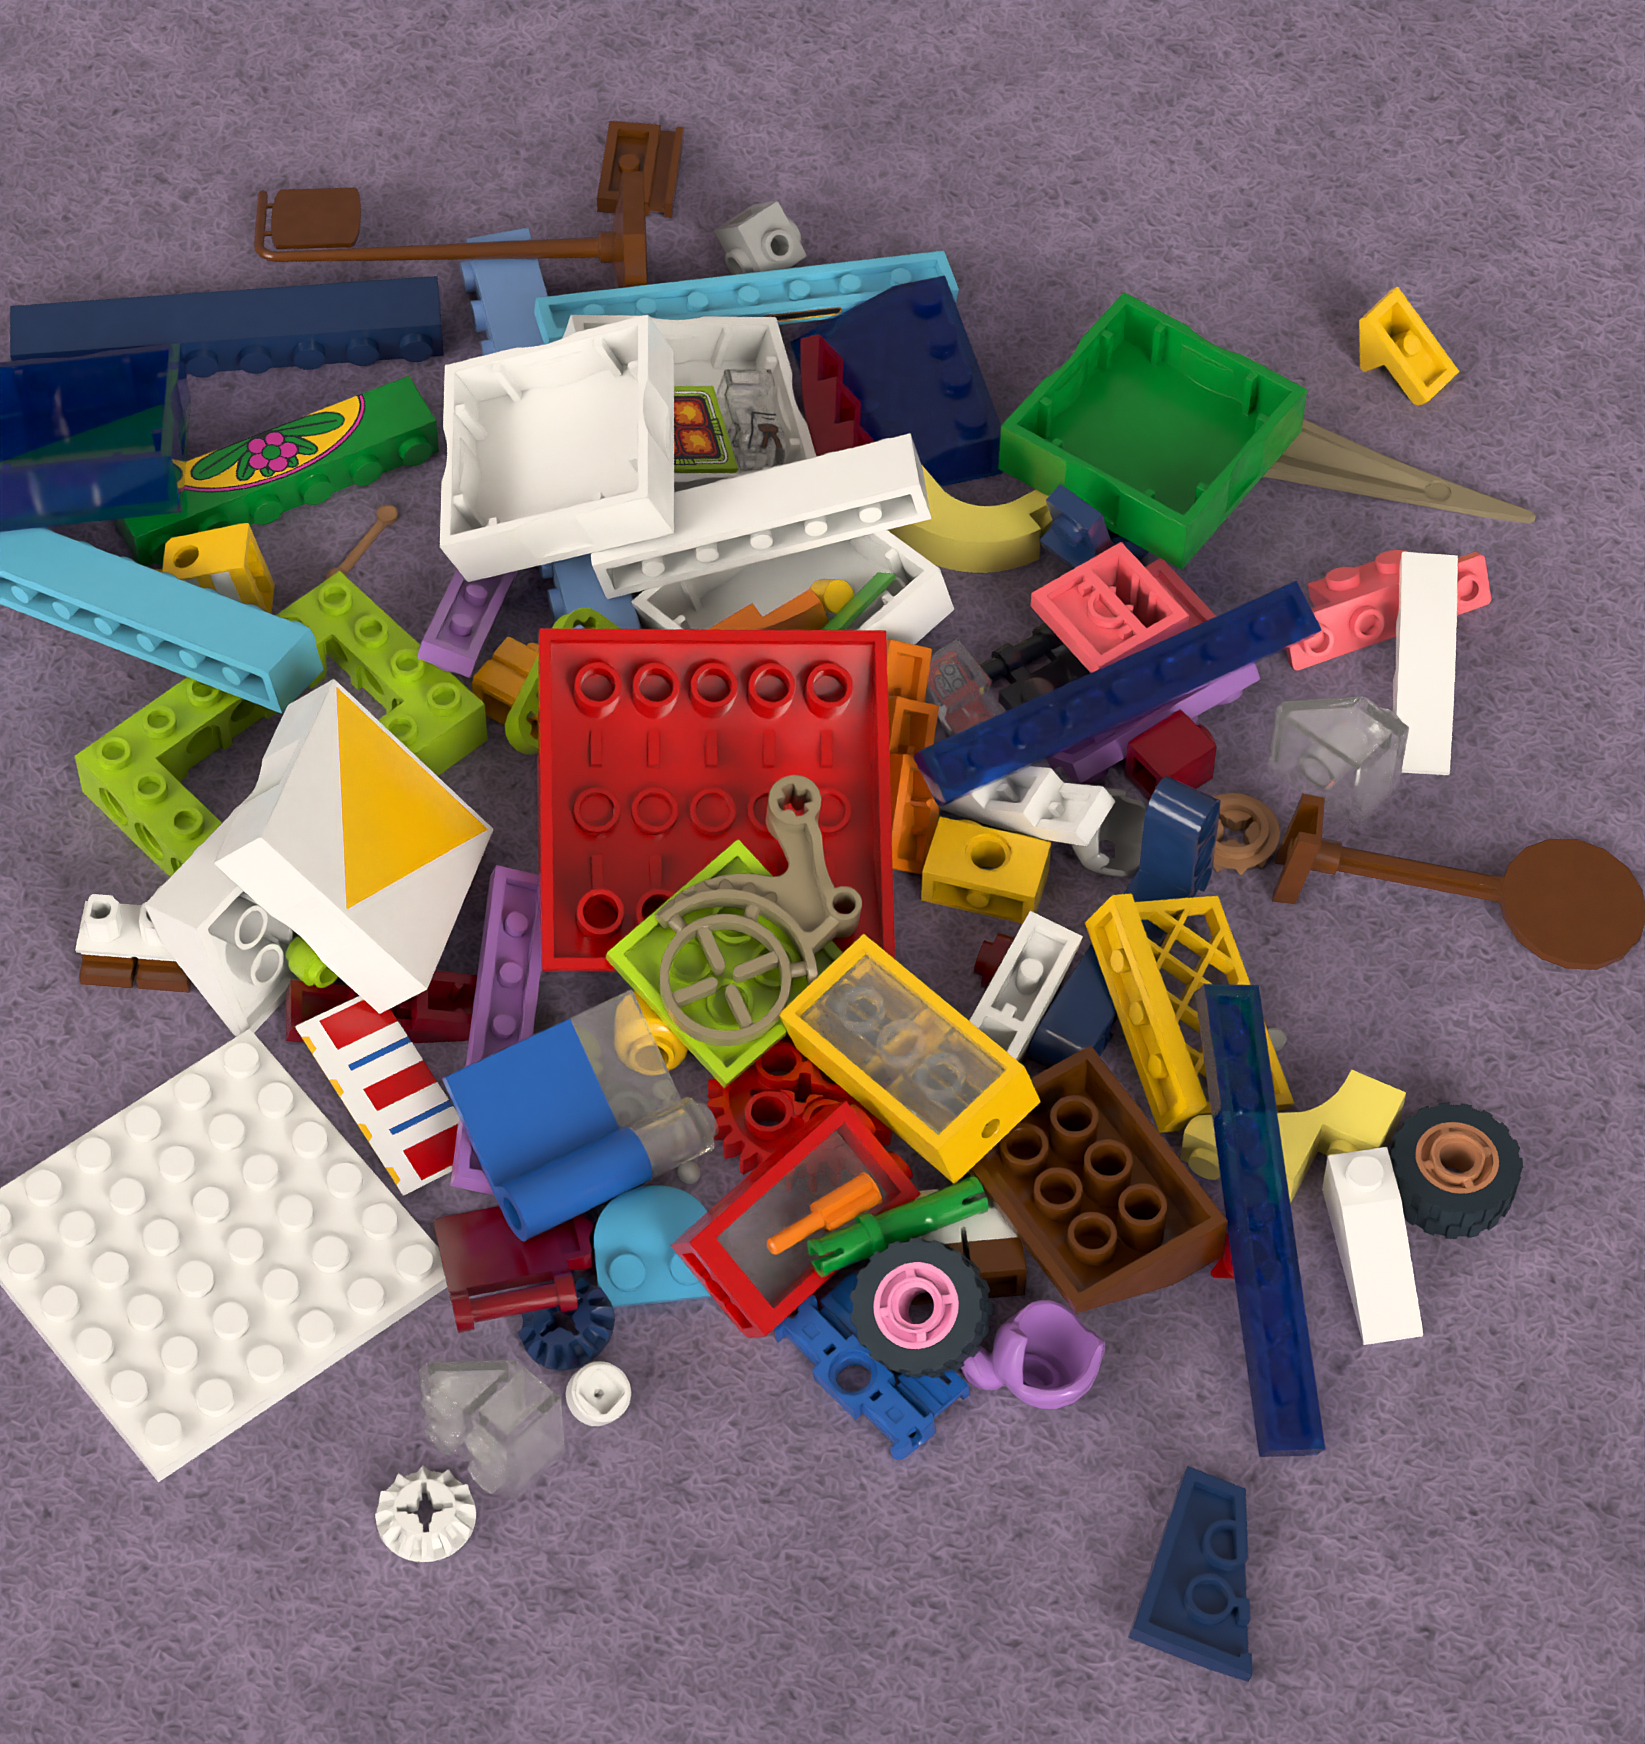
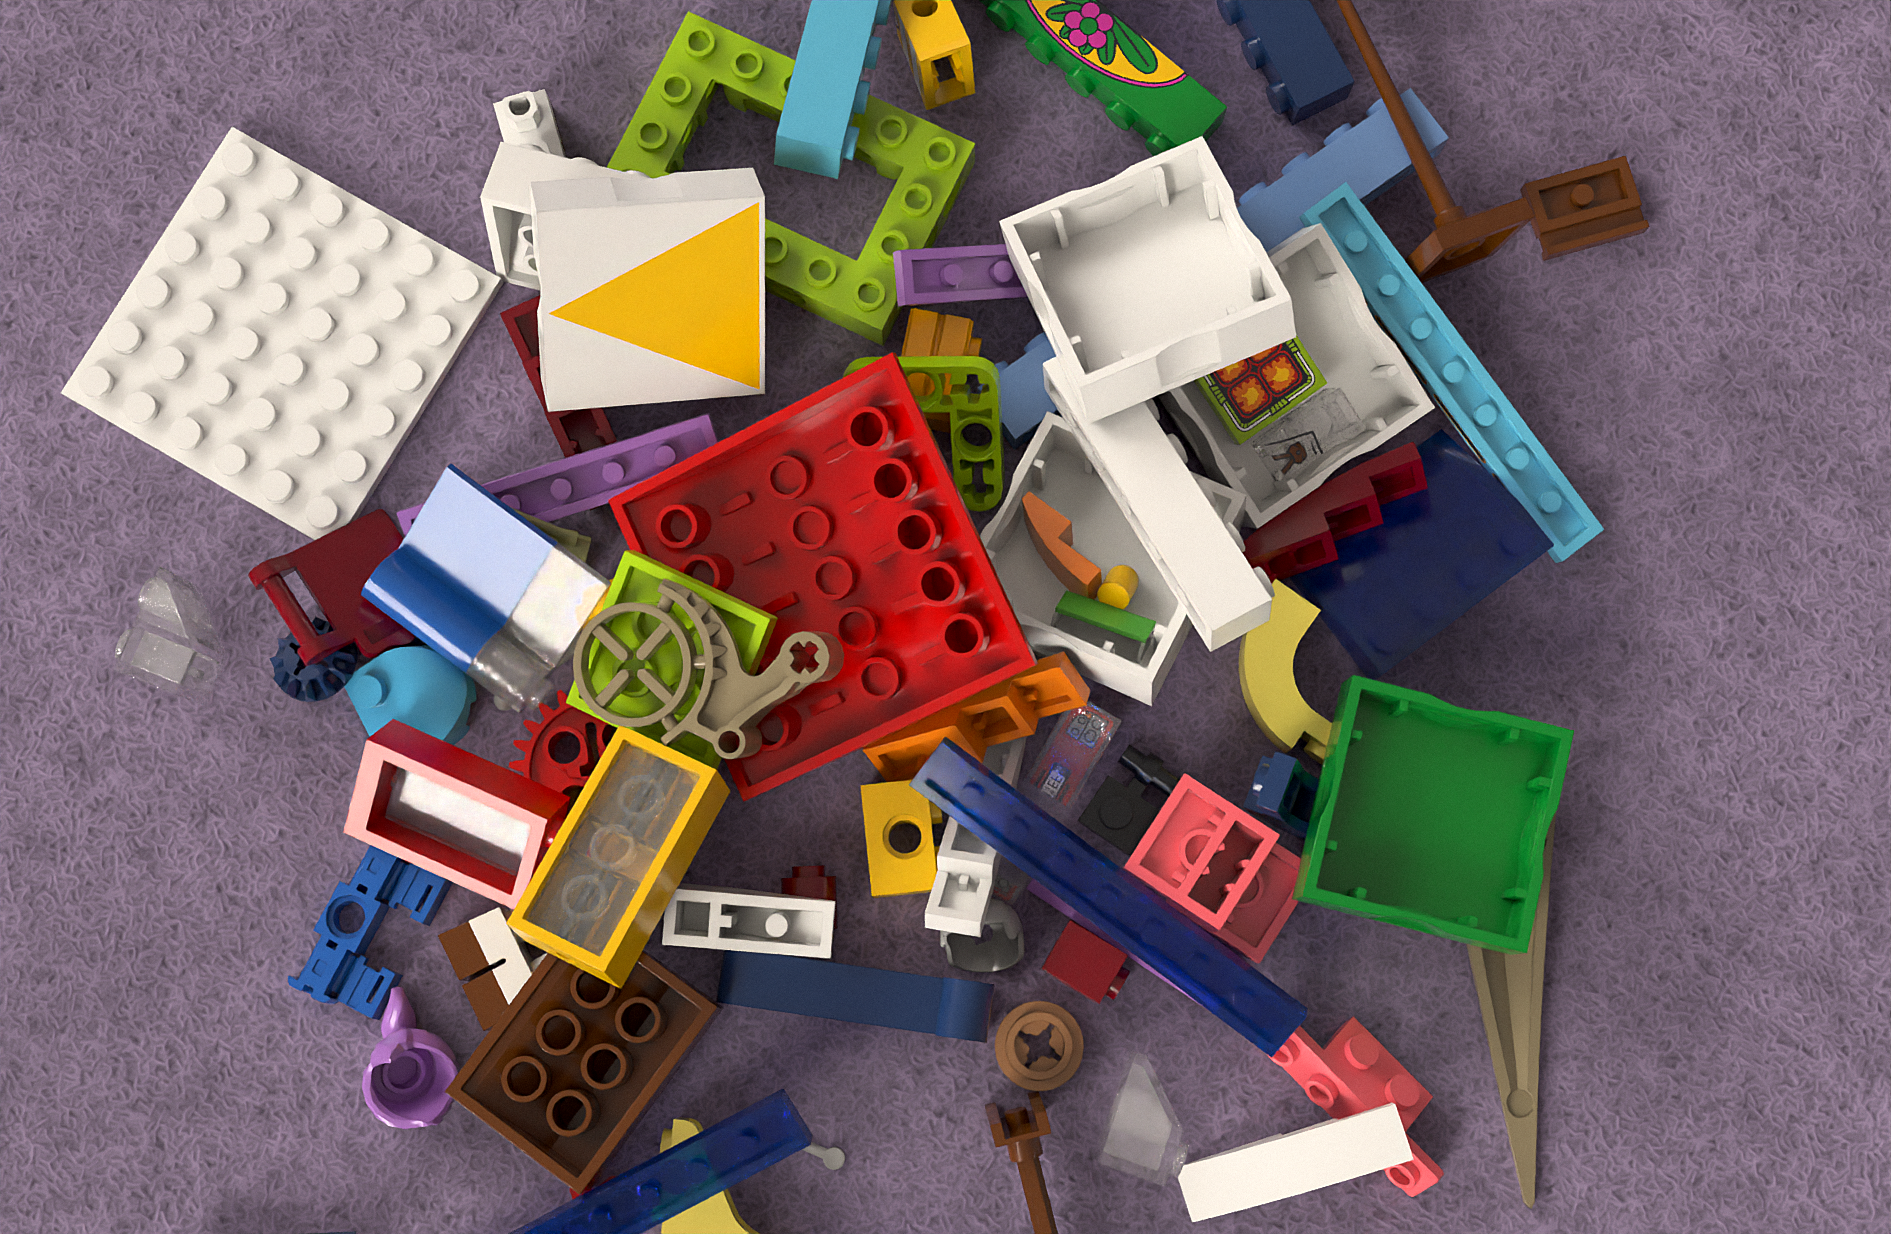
camera: 70 degrees right, 25 degrees up
(385, 516) = (1088, 154): medium nougat hinge -> none
(386, 1090) = (476, 412): sticker -> none
(448, 1528) = (81, 611): white gear -> none
(598, 1393) = (259, 712): white tile -> none
(760, 240) = (1530, 357): light grey brick -> none
(830, 1212) = (453, 846): orange axle -> none
(884, 1301) = (399, 957): black wheel -> none
(898, 1224) = (462, 900): green pin -> none
(1151, 1013) = (787, 1037): yellow fence -> none
(1401, 341) = (1671, 1019): yellow slope -> none

